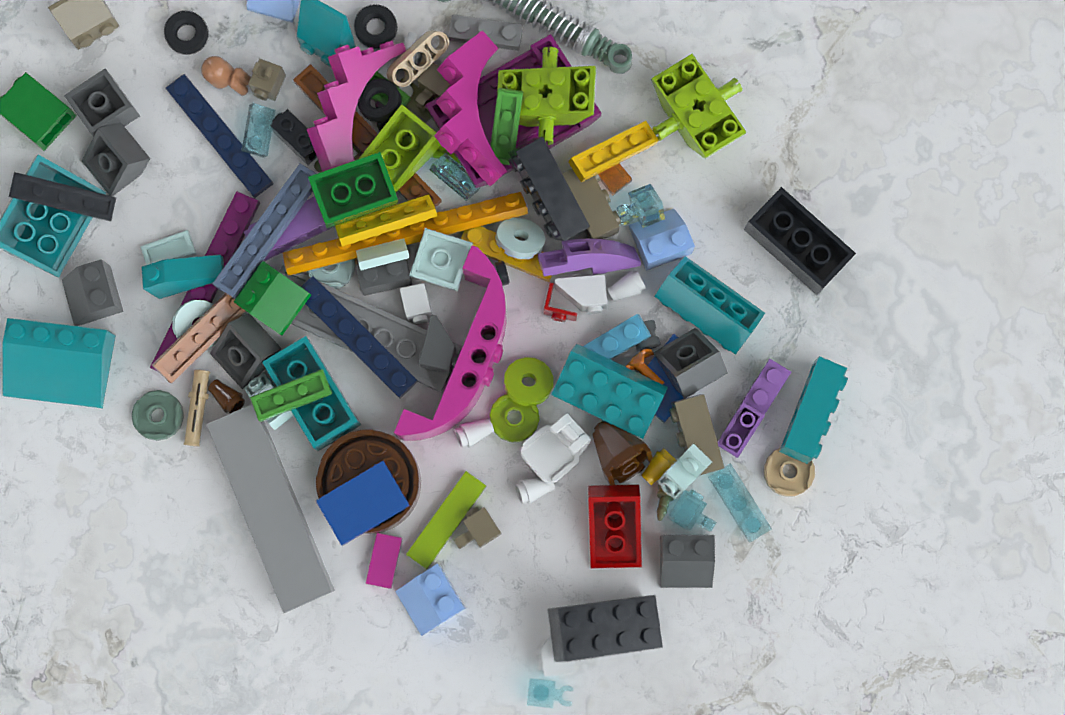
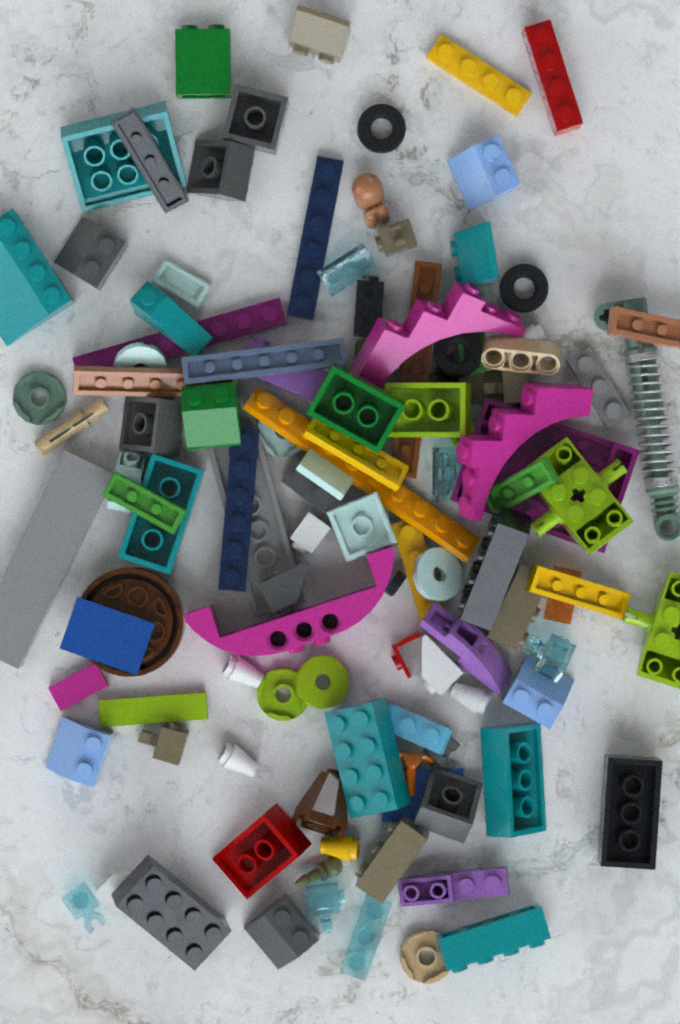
camera: 50 degrees right, 10 degrees up
(227, 397) = (101, 443): reddish brown cone -> none
(555, 449) = (282, 752): white piece -> none
(684, 472) = (349, 874): light aqua slope -> none

